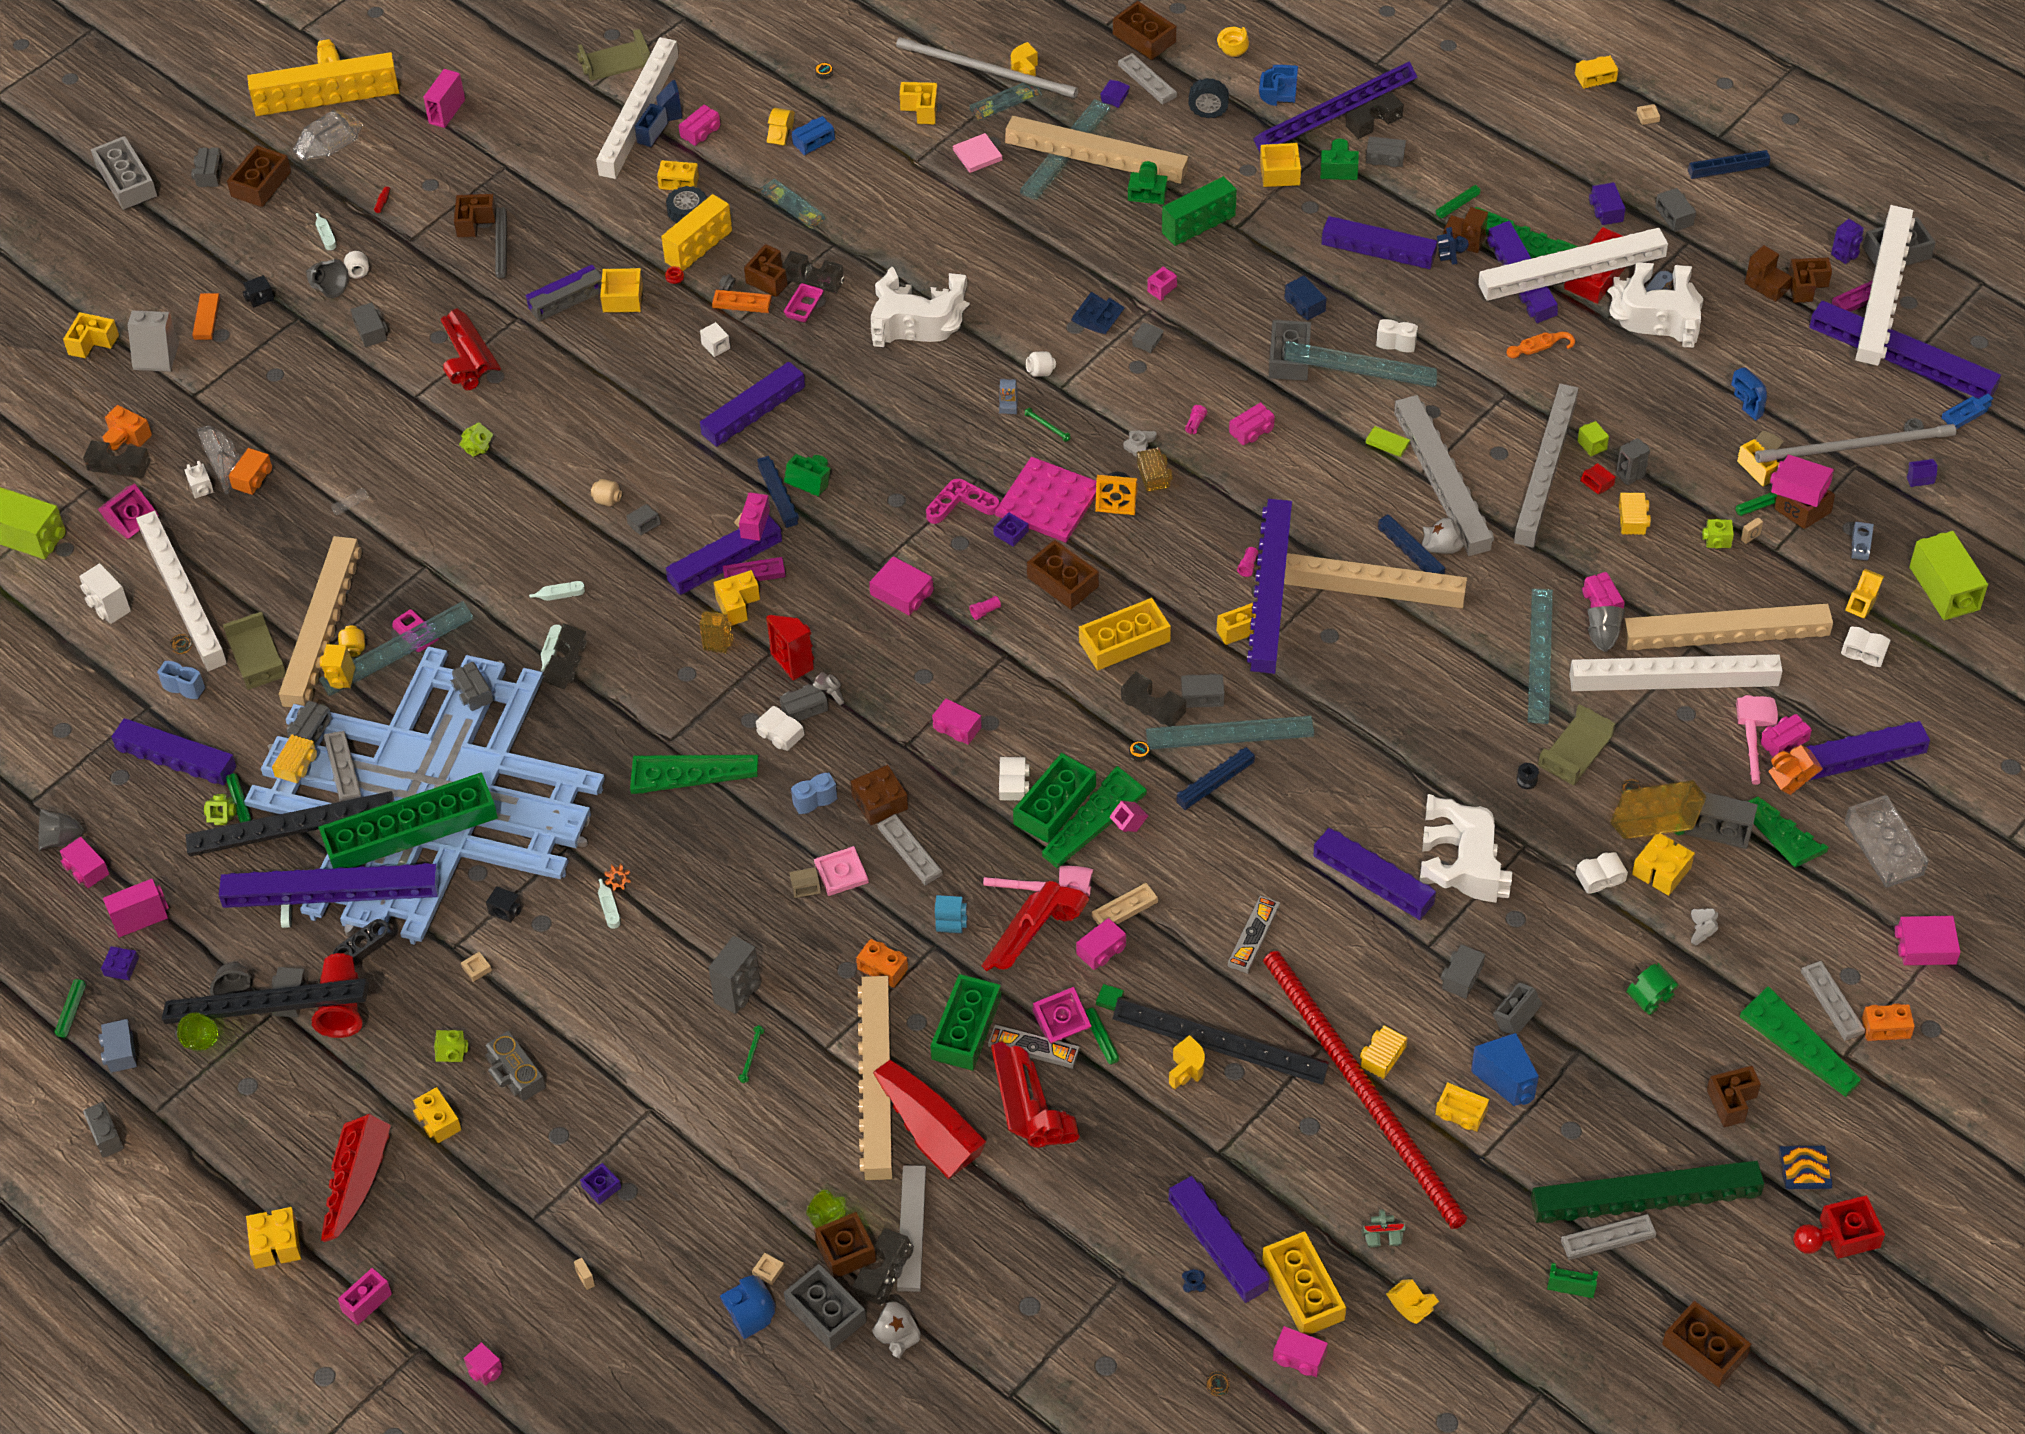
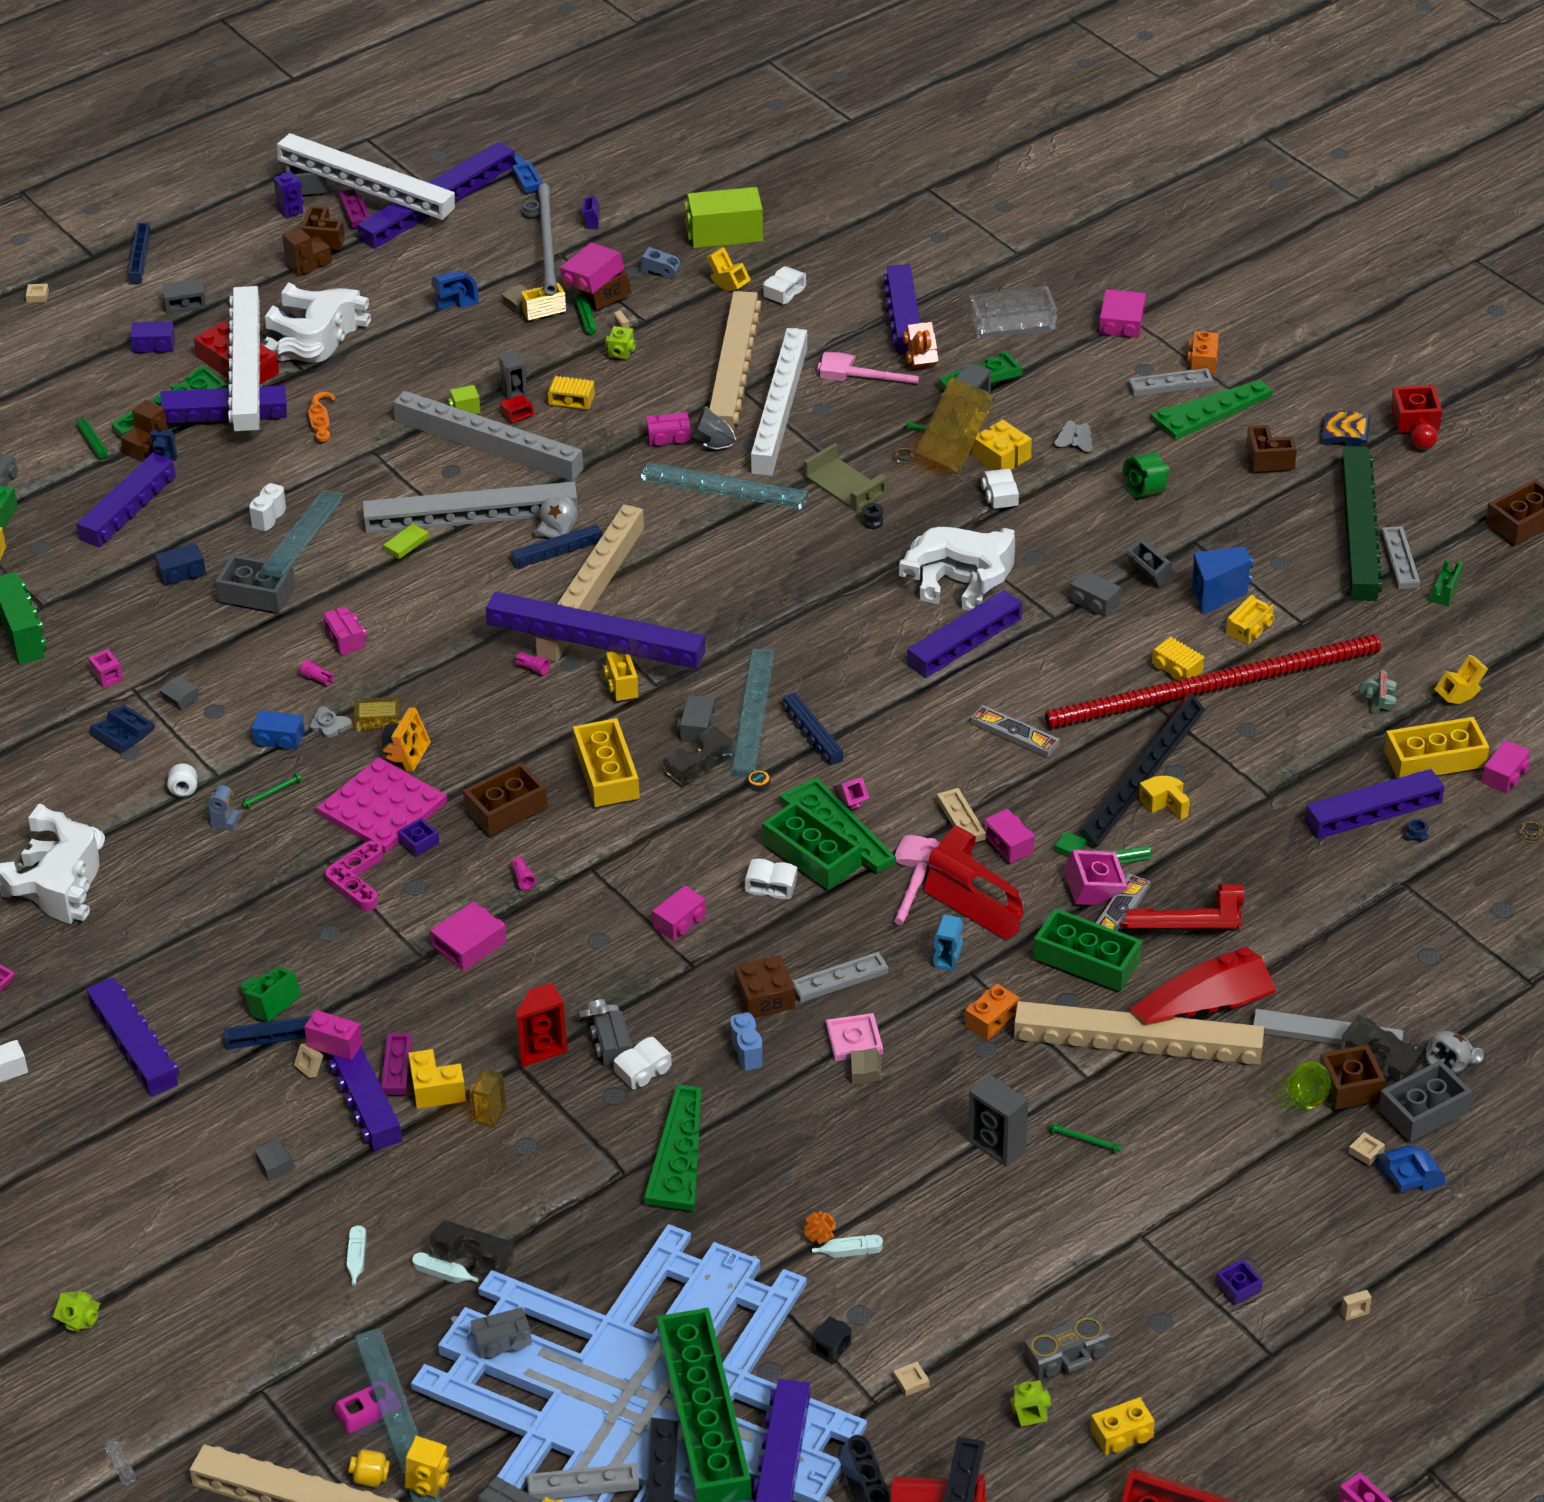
camera: 80 degrees left, 10 degrees down
(483, 1364) = (1463, 1405): dark pink brick -> none
(606, 492) = (218, 1188): tan head -> none
(1115, 409) = (278, 729): none -> blue brick
(1786, 735) = (874, 350): dark pink brick -> none

